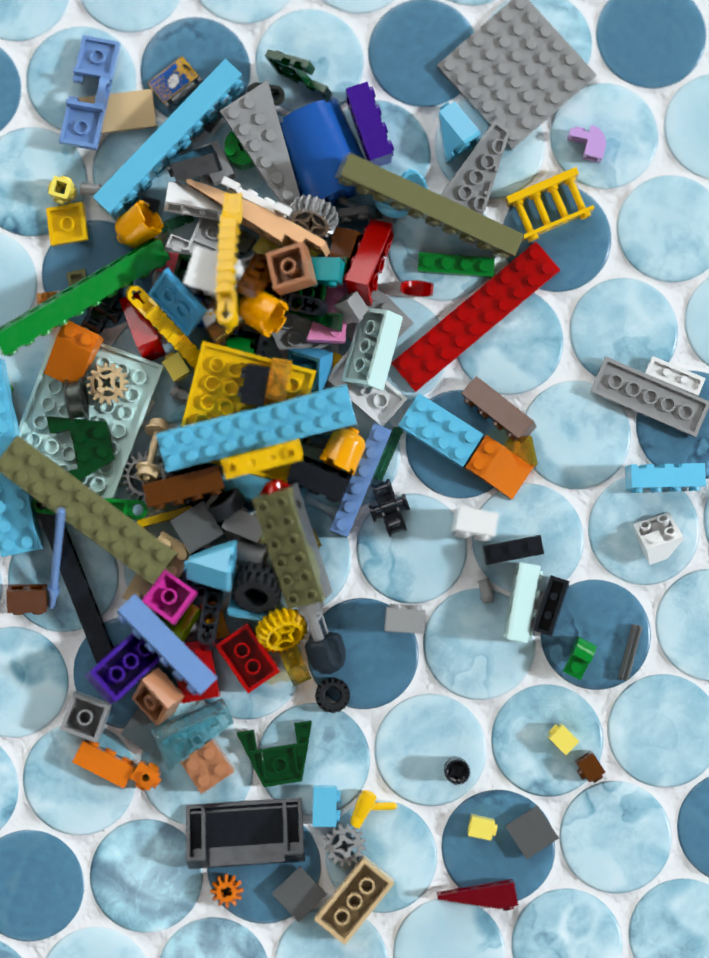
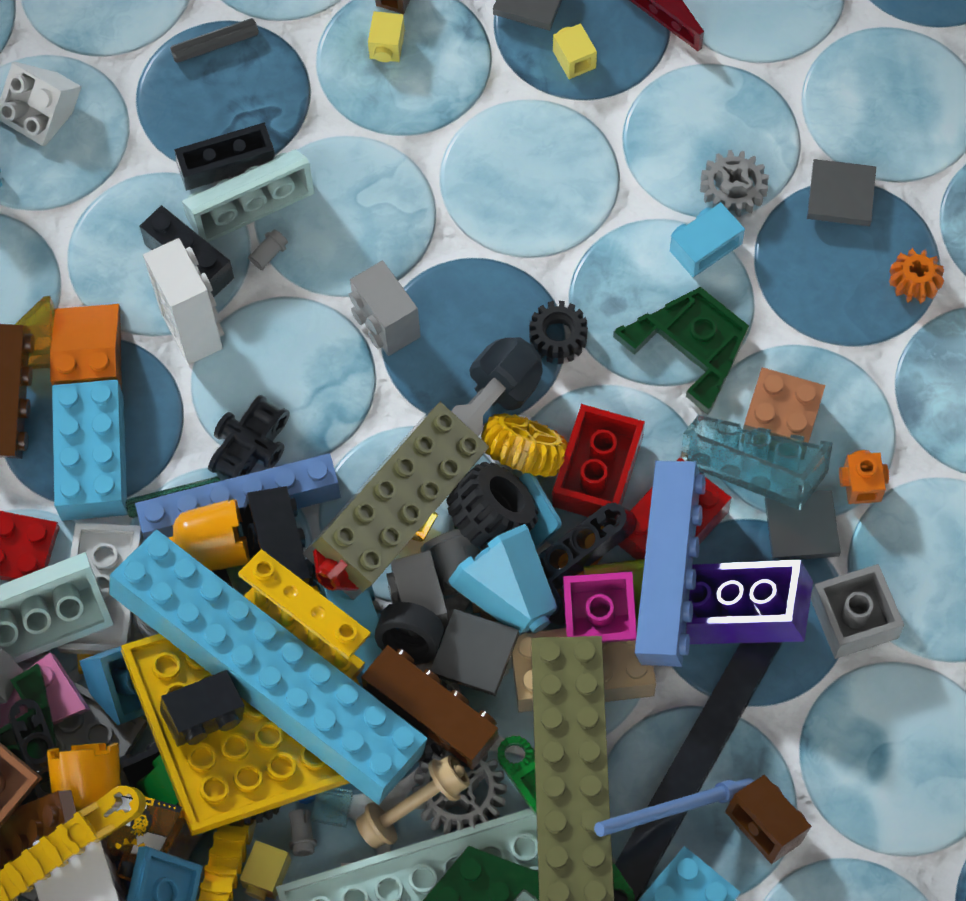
camera: 125 degrees left, 20 degrees down
(104, 763) = (896, 543): orange brick -> none
(157, 696) = (747, 528): nougat brick -> none
(167, 516) = (506, 725): yellow tile -> none
(244, 833) = (826, 307): black slope -> none
(279, 379) = (167, 675): clear yellow slope -> none
(295, 665) = (558, 400): clear yellow slope -> none
(354, 899) = (791, 121): tan brick -> none
(365, 804) = (665, 196): yellow piece -> none
(456, 770) = (528, 121): black wheel -> none
(580, 656) = (260, 80): green brick -> none

